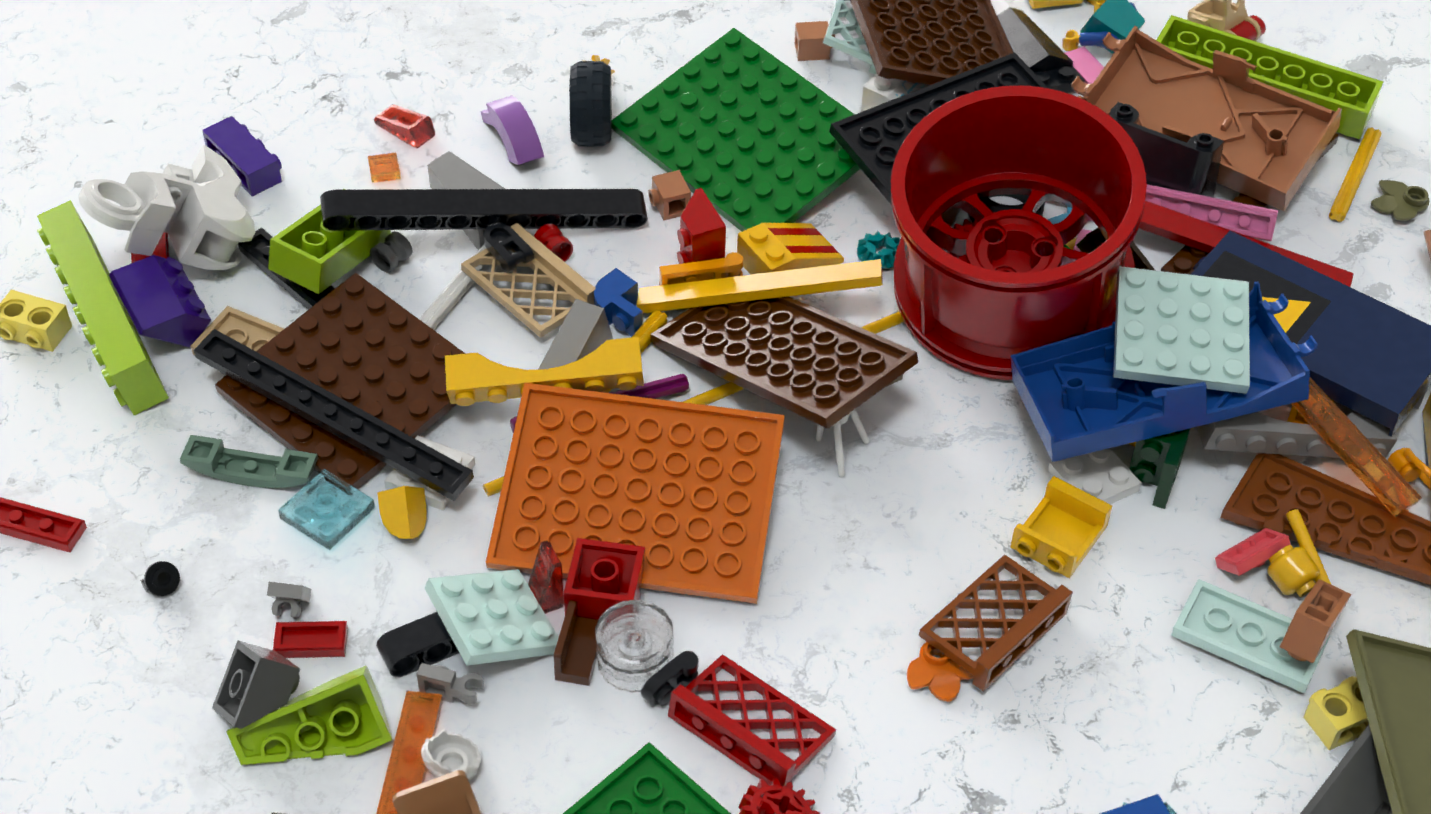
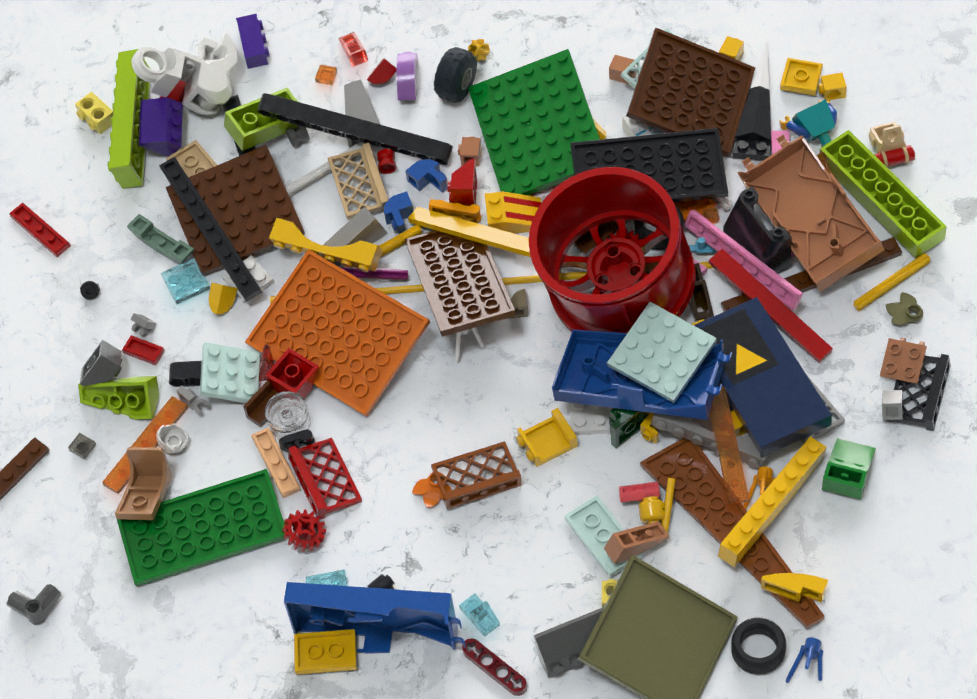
camera: 35 degrees right, 10 degrees up
(470, 137) = (382, 72): none -> red brick
(500, 239) = (354, 150): black plate -> none
(626, 239) = (426, 172): none -> blue brick
(647, 725) = (275, 462): none -> light nougat tile
(1197, 461) = (649, 431): none -> yellow bracket

